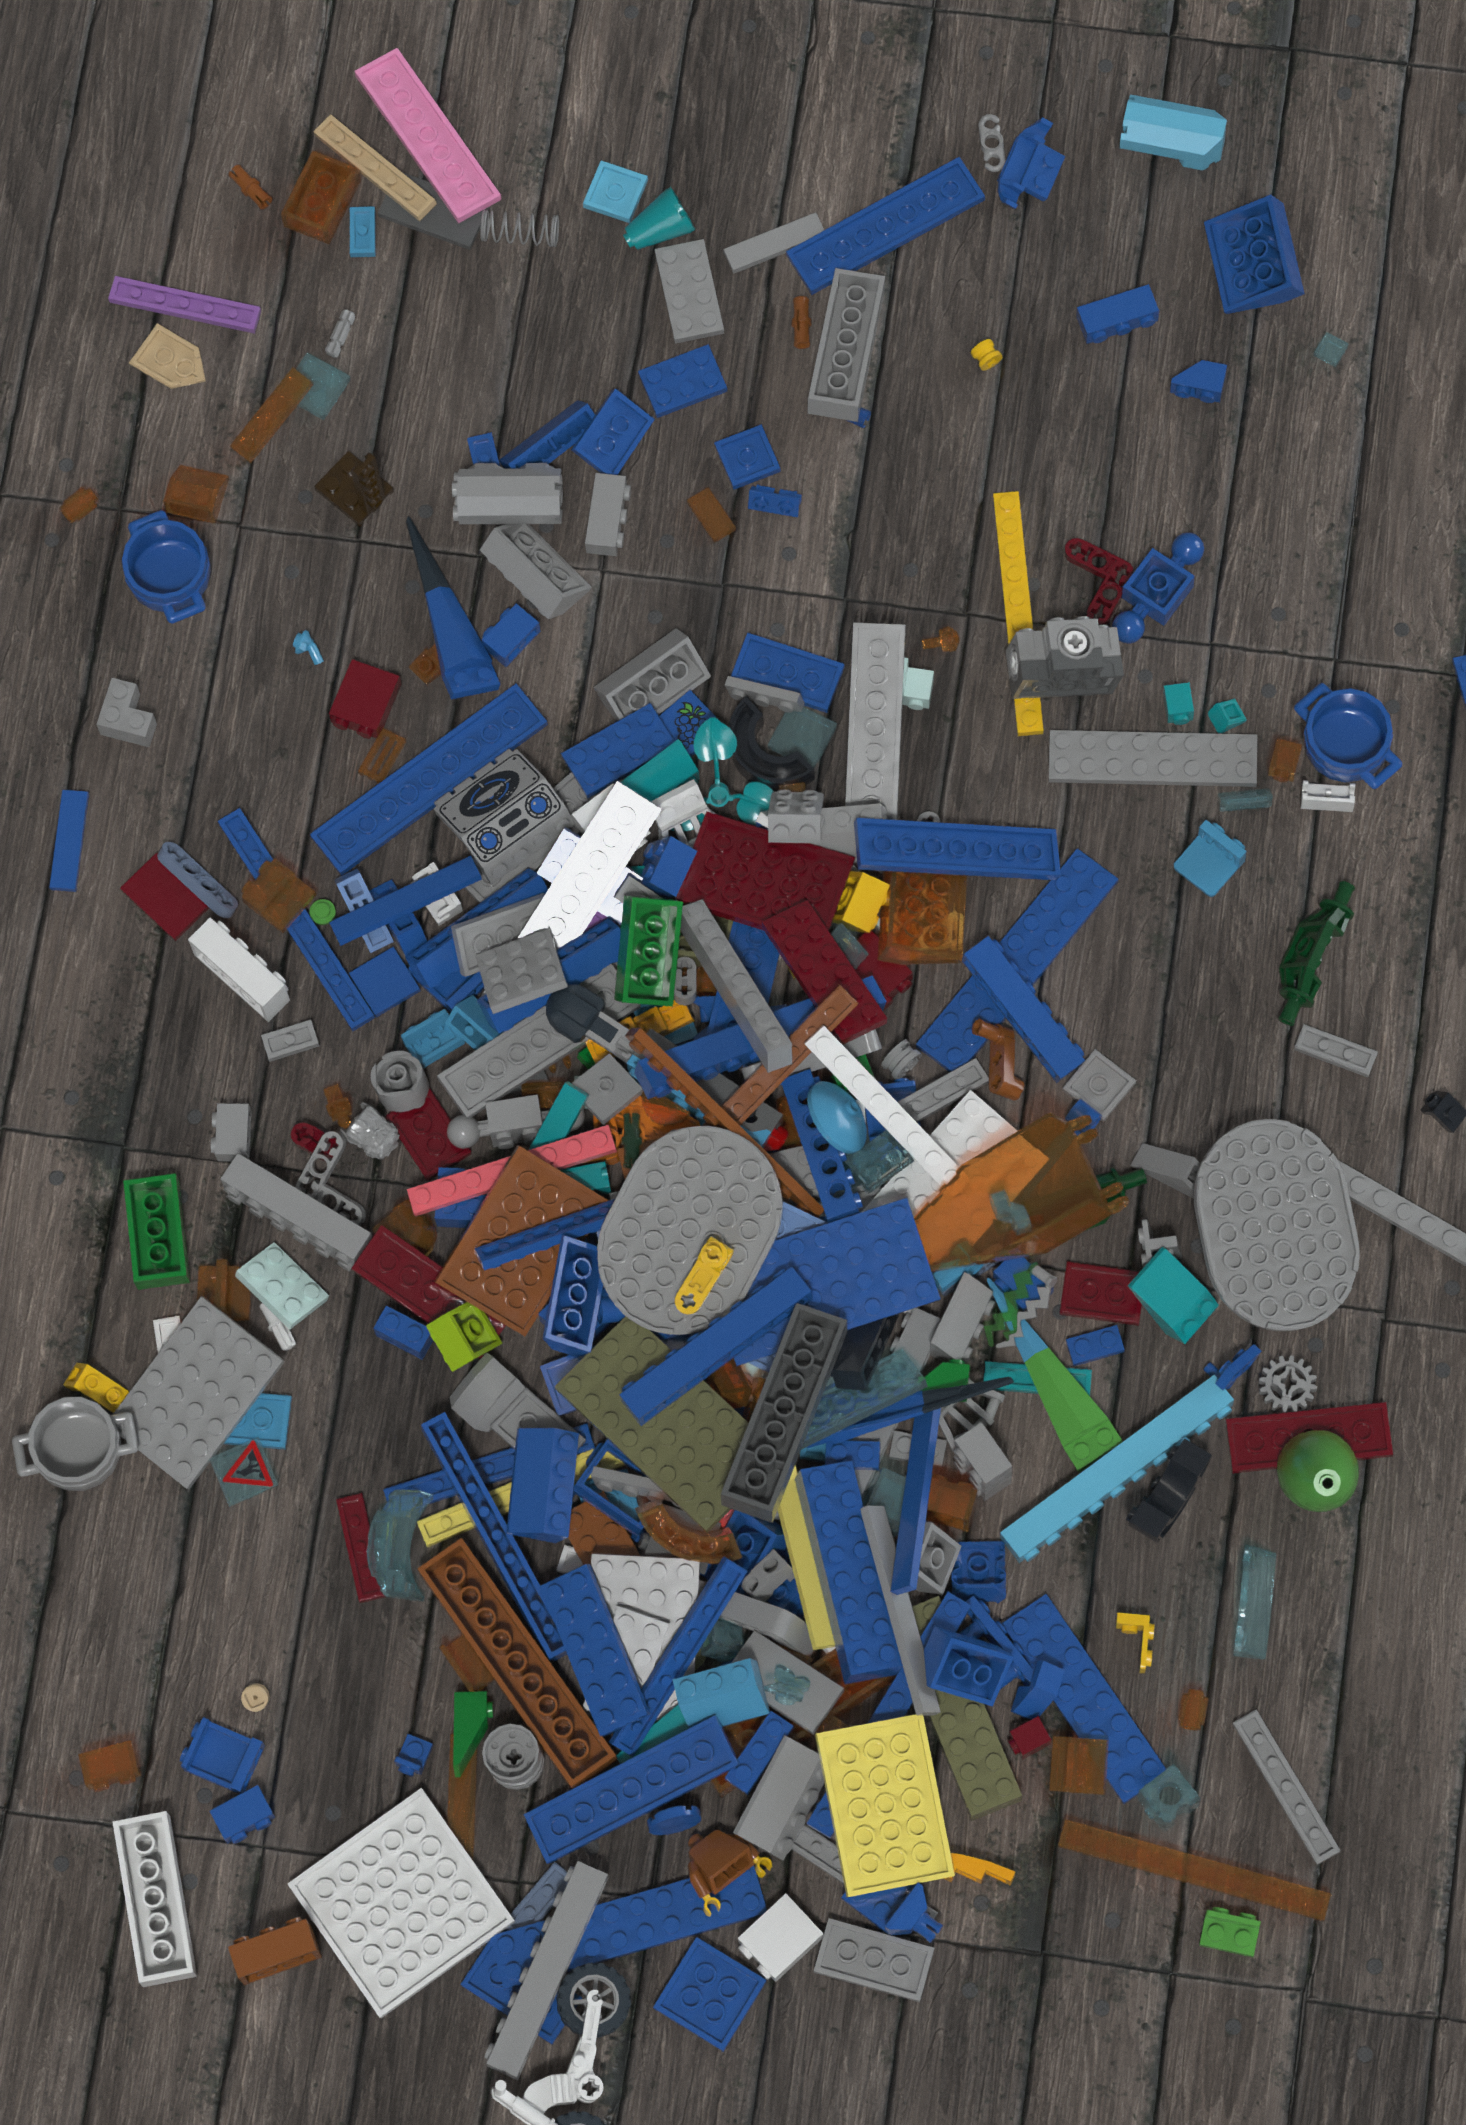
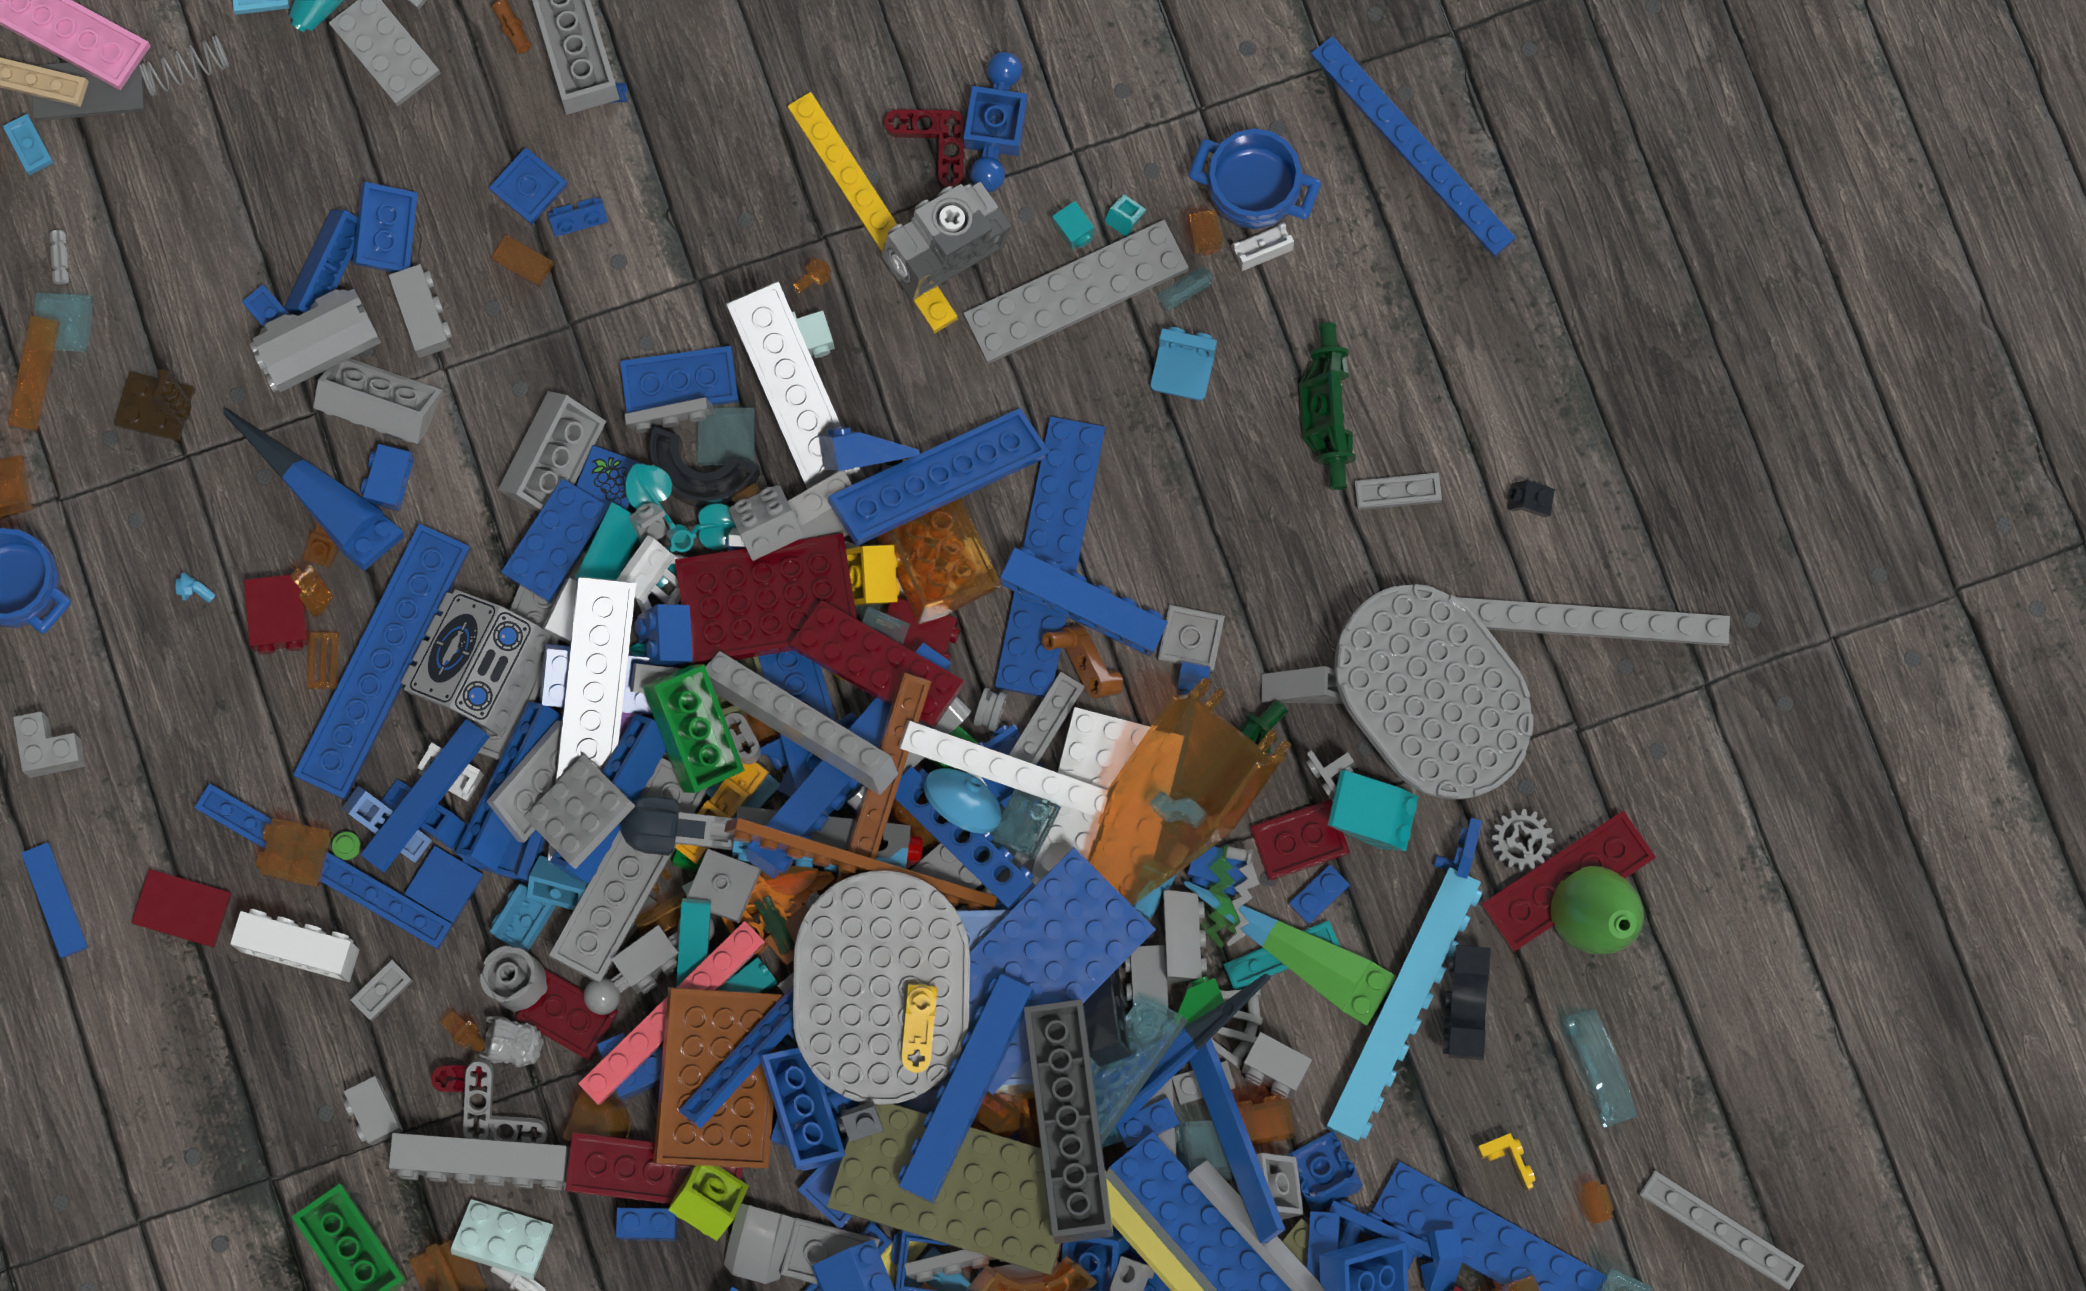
camera: 30 degrees left, 5 degrees up
(217, 899) = (244, 886): sand blue beam -> none
(403, 696) = (314, 592): none -> clear orange plate
(616, 1329) = (859, 1121): none -> bracket
(682, 381) = (424, 141): blue plate -> none
(701, 769) = (649, 522): none -> light grey bracket
(900, 792) = (851, 450): none -> blue slope

